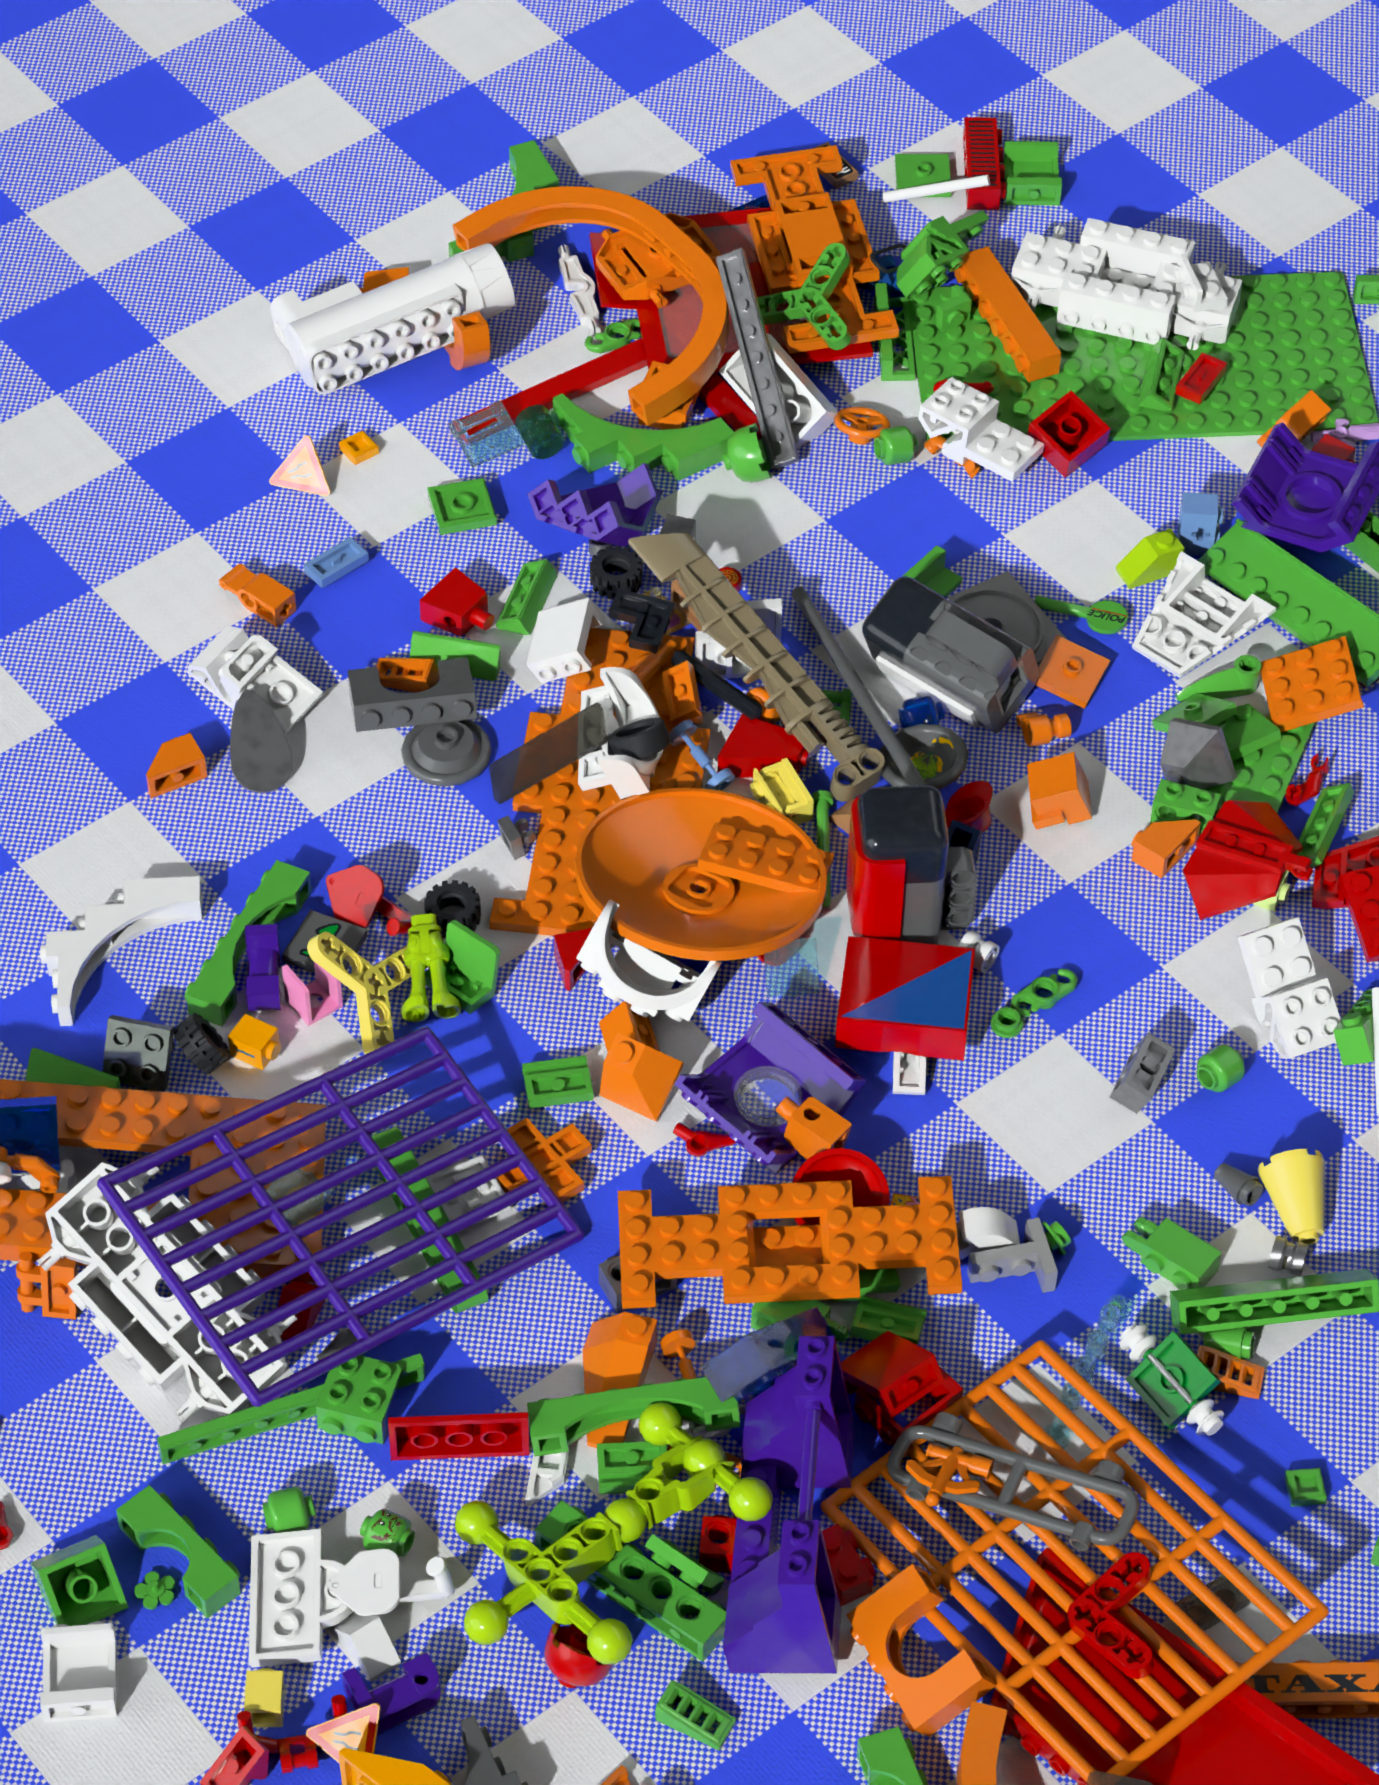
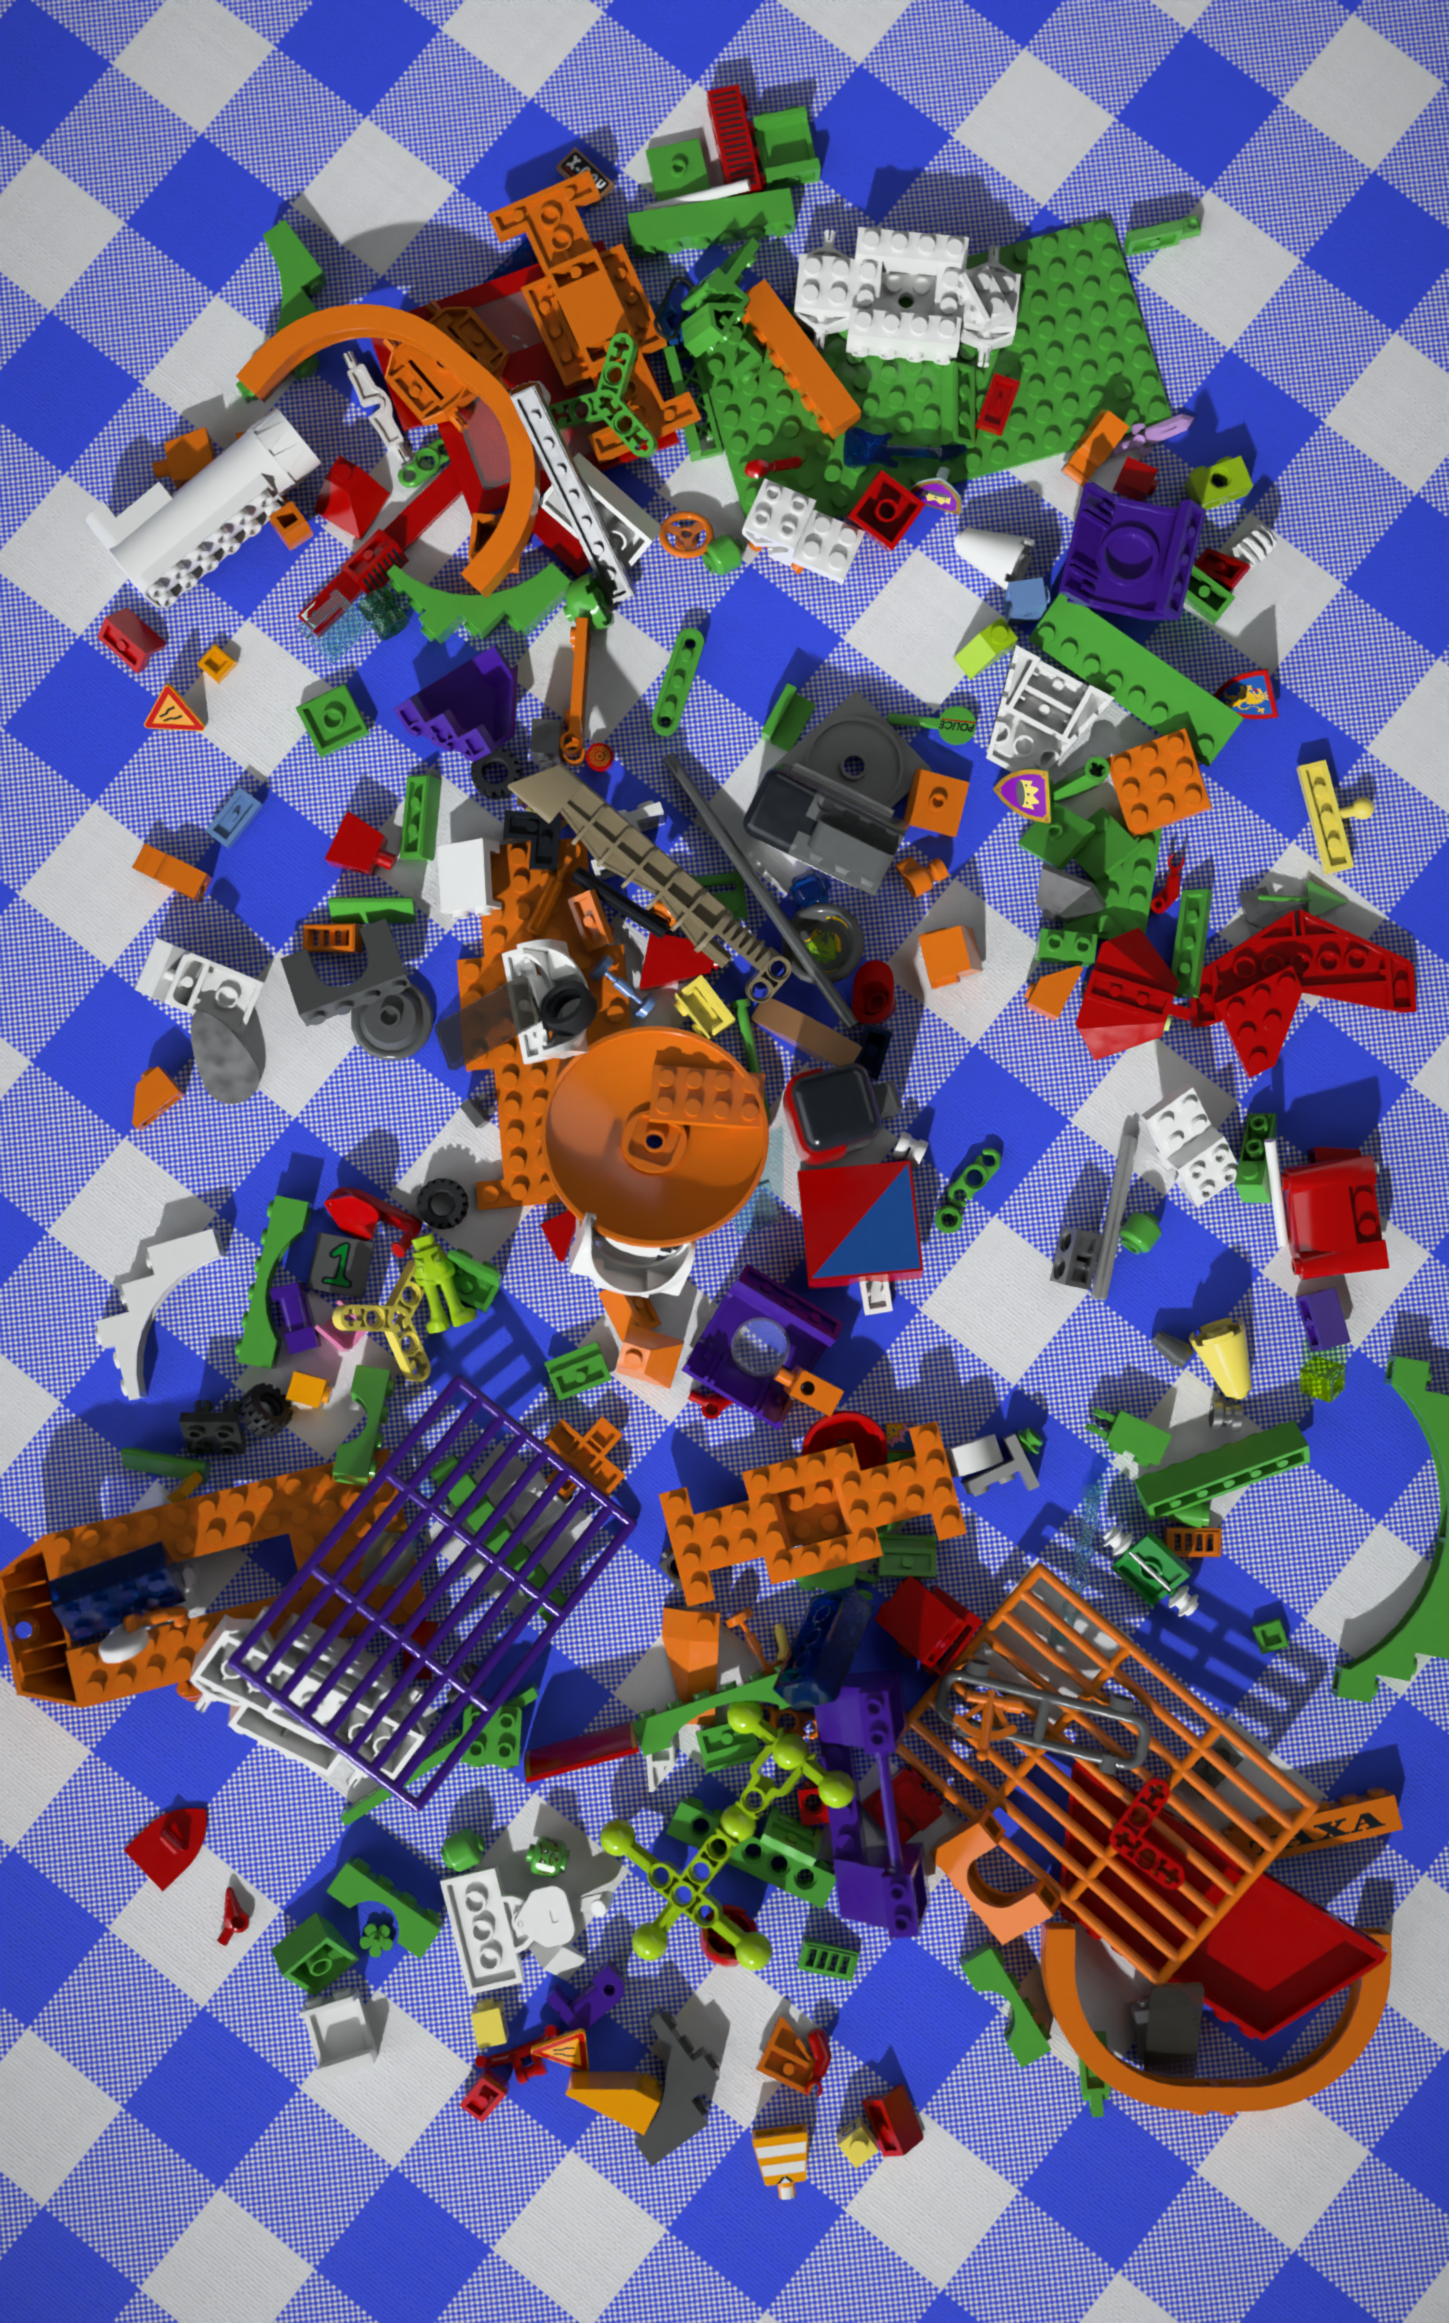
camera: 10 degrees left, 35 degrees up
(277, 413) = (130, 638): none -> red panel
(321, 1051) = (356, 1459): none -> bright green arch
(533, 345) = (350, 498): none -> red slope
(542, 389) = (373, 560): none -> red panel
(716, 526) = (575, 716): none -> orange hinge
(823, 535) = (677, 682): none -> bright green plate
(913, 208) = (711, 223): none -> bright green brick
(1054, 386) = (868, 448): none -> clear blue piece
(1127, 432) = (938, 493): none -> shield
(1168, 481) = (995, 554): none -> white cone
(1169, 674) = (1027, 793): none -> shield
(1197, 1047) = (1114, 1217): none -> light grey axle

